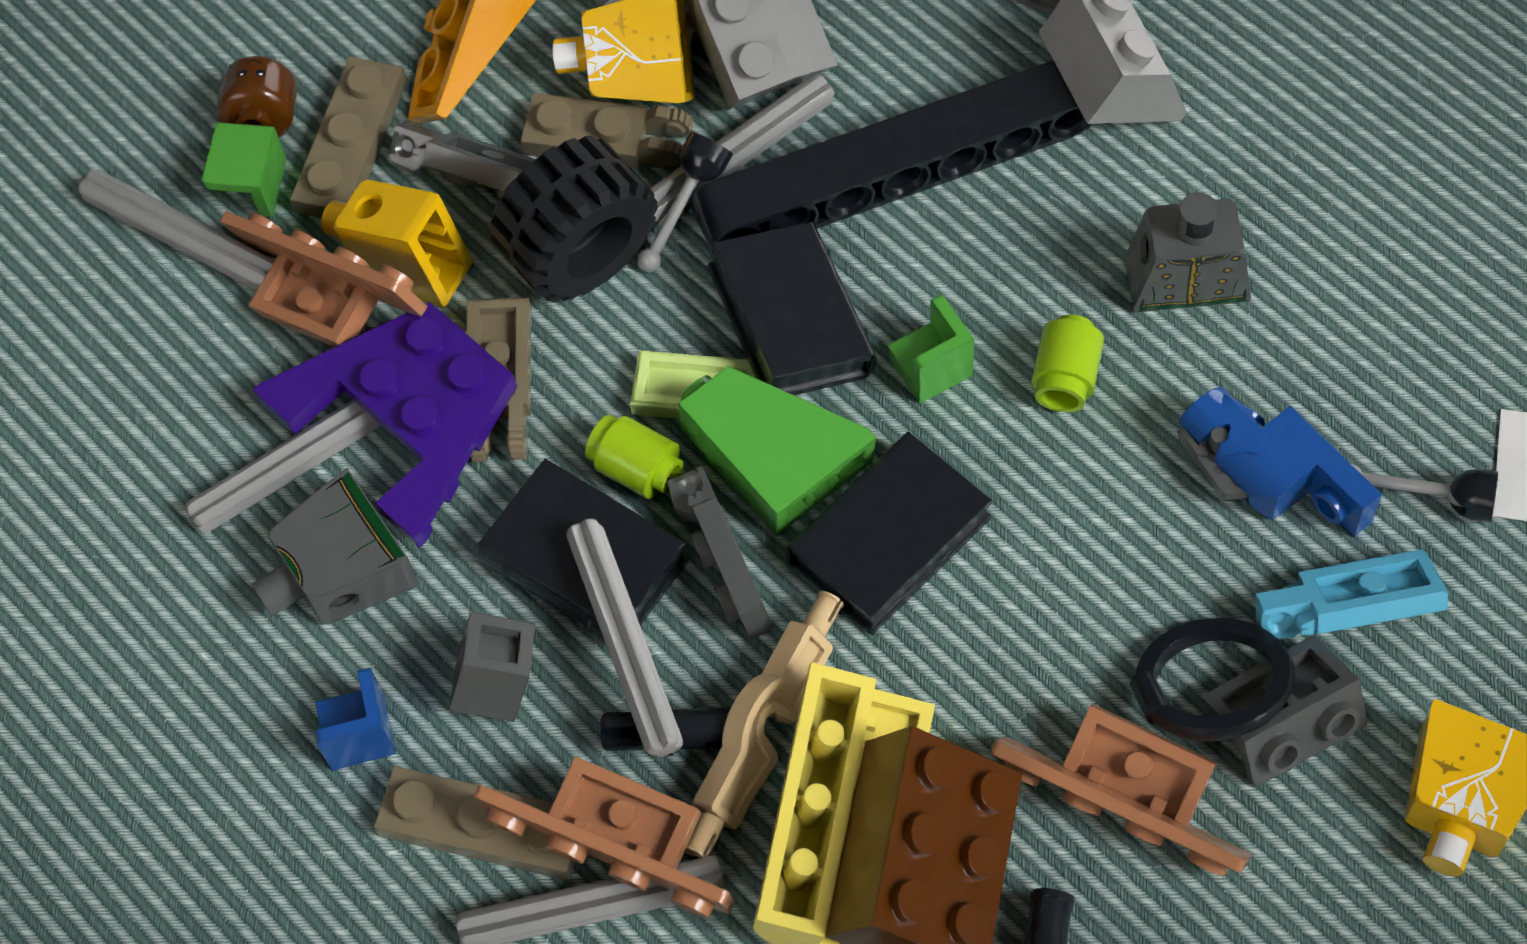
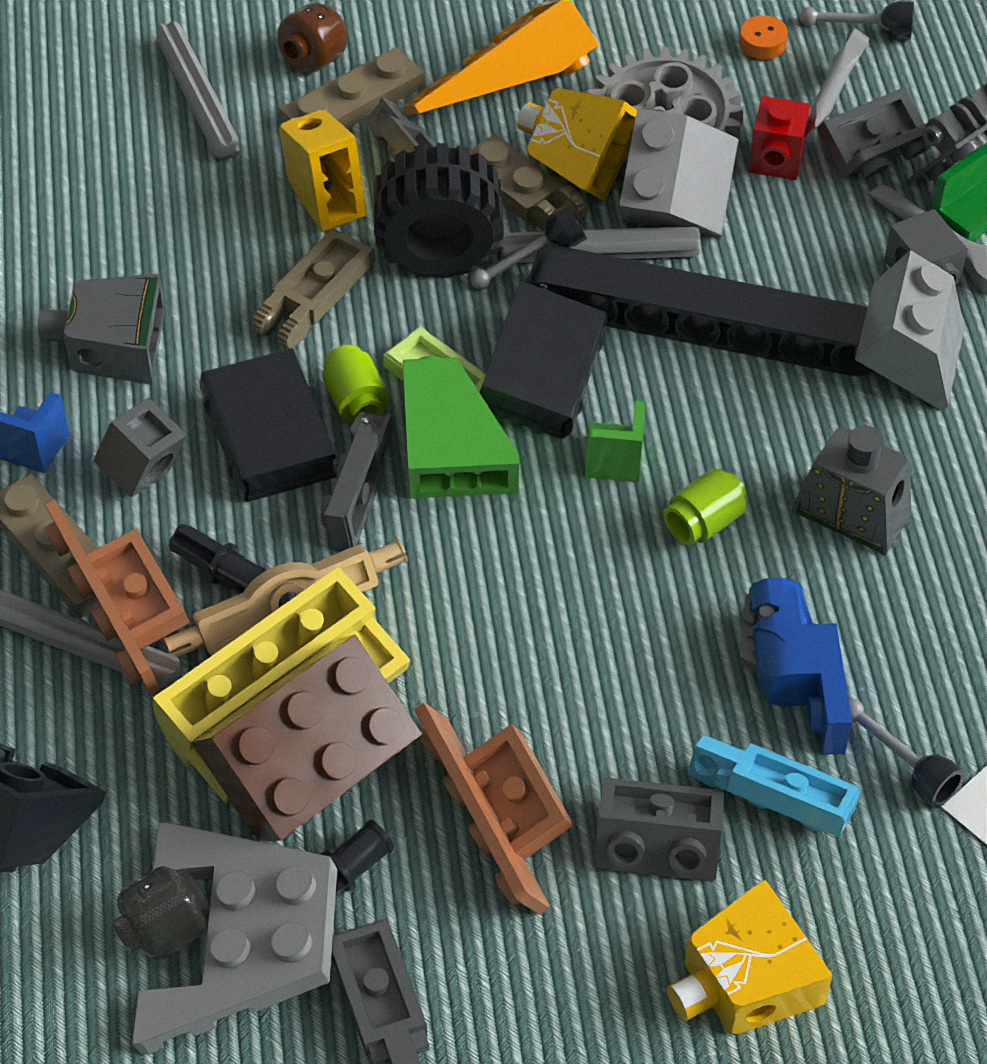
camera: 30 degrees right, 10 degrees down
(247, 162) = (273, 70): bright green panel -> none
(280, 466) = (147, 259): light grey axle -> none
(317, 289) = (247, 163): nougat bracket -> none
(421, 385) = (254, 260): dark purple wing -> none
(624, 639) = (236, 482): light grey axle -> none
(890, 532) = (484, 538): black piece -> none
(1219, 727) = (595, 735): black piece -> none

